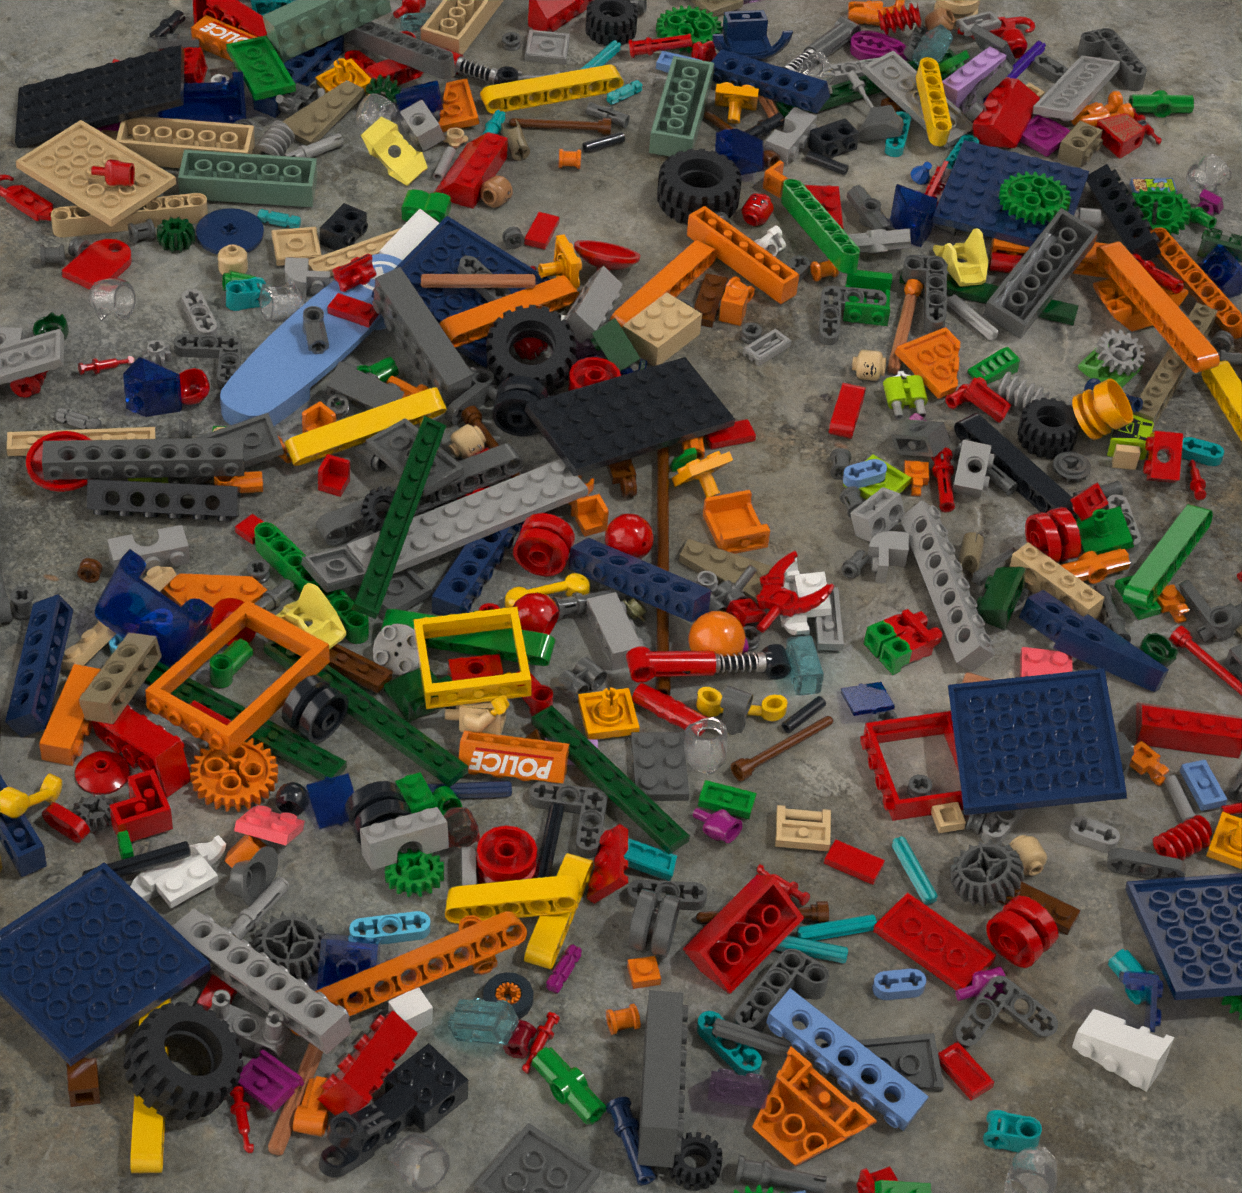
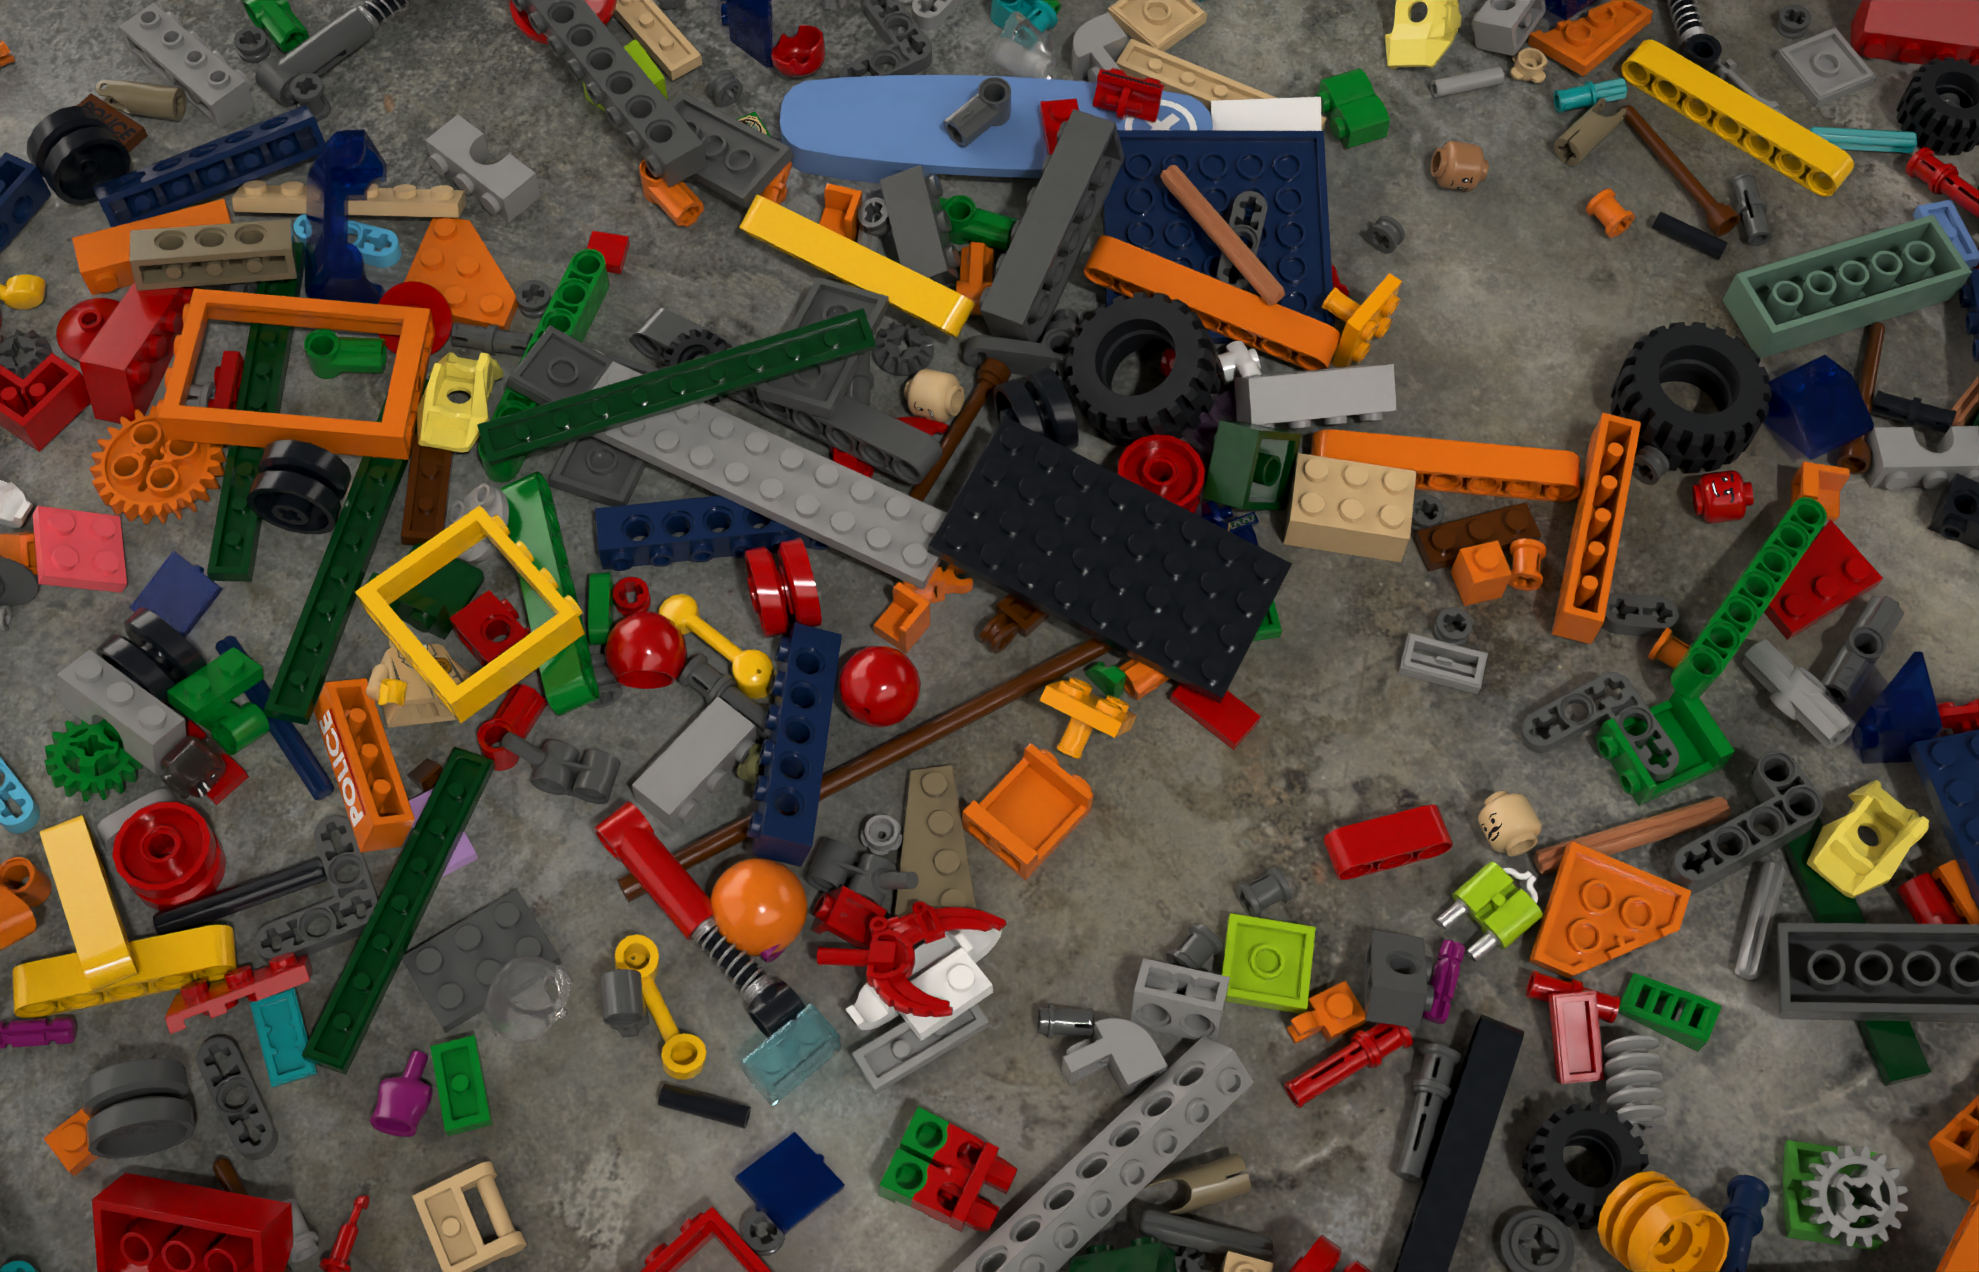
camera: 60 degrees right, 15 degrees up
(89, 570) = (411, 130): reddish brown bush -> none
(99, 489) = (578, 133): black brick -> none
(292, 798) = (147, 548): black piece -> none
(333, 475) = (755, 282): red panel -> none
(343, 227) = (1232, 42): black brick -> none
(474, 166) = (1489, 119): red slope -> none
(541, 230) = (1437, 260): red tile -> none
(606, 254) = (1443, 356): red dish -> none
(608, 713) = (533, 841): light orange plate -> none
(624, 92) = (1821, 203): teal axle -> none
(666, 707) = (589, 917): red axle -> none
(736, 99) = (1930, 344): light orange plate -> none
(745, 767) = (540, 1077): reddish brown piece -> none
(754, 636) = (807, 935): dark grey bush -> none
(772, 241) = (1652, 550): white plate -> none
(827, 163) = (1924, 537): black piece -> none
(865, 473) = (1259, 928): medium blue beam -> none
(913, 287) = (1742, 798): orange hinge -> none
(966, 481) = (1361, 1092): light grey brick -> none

